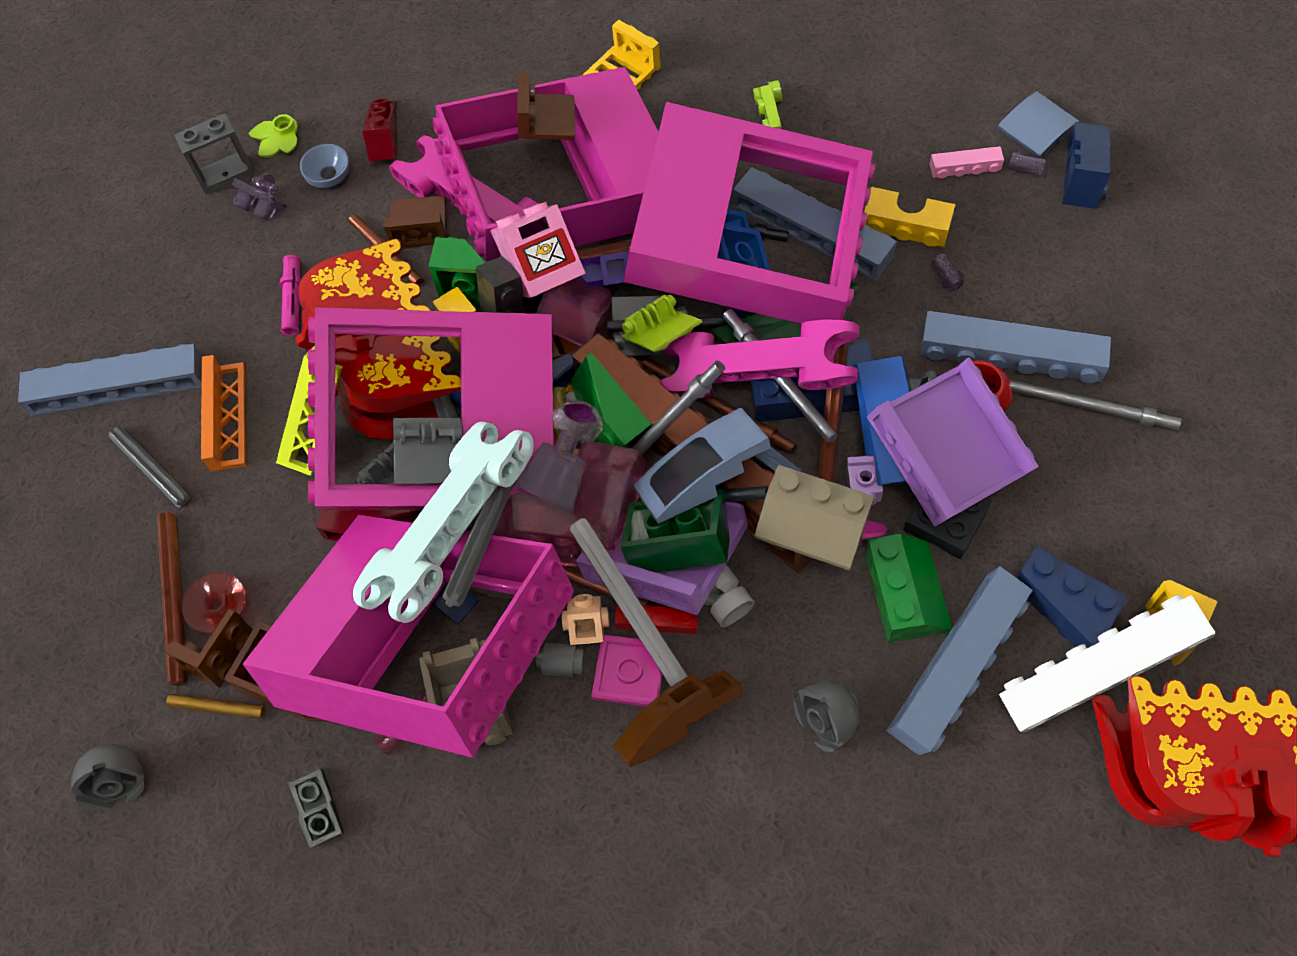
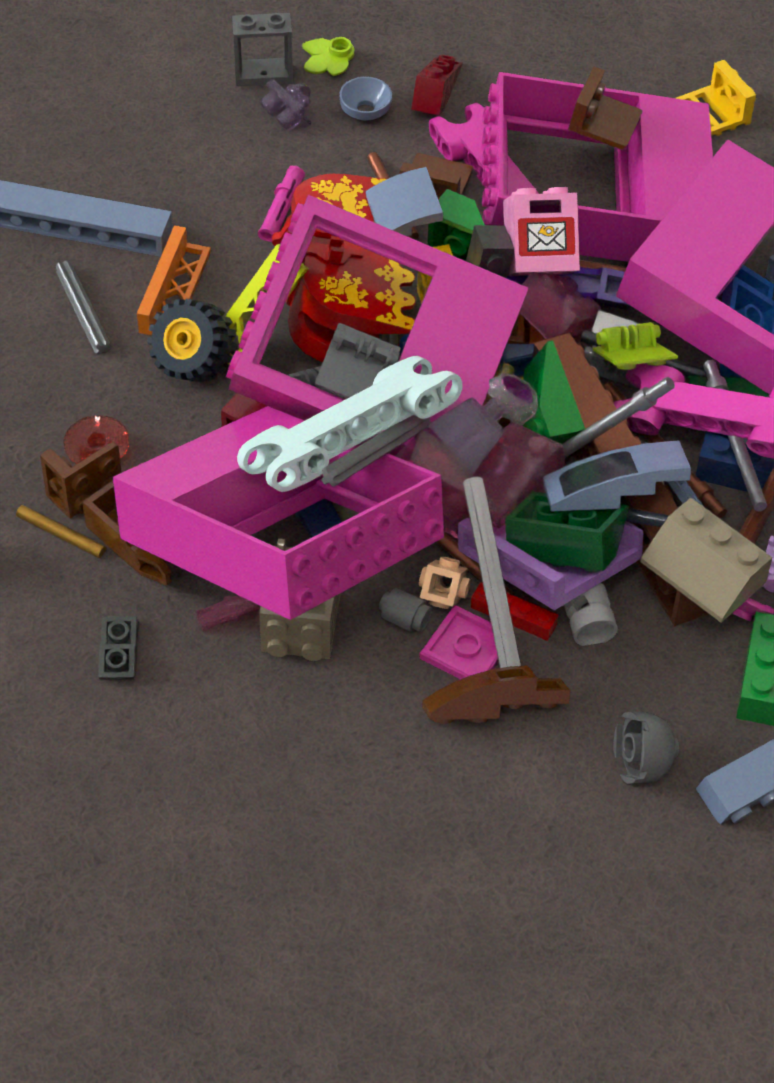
camera: 15 degrees right, 10 degrees down
(171, 593) = (58, 421): copper axle -> none
(262, 468) = (191, 340): none -> black wheel
(403, 266) = (405, 201): none -> sand blue slope

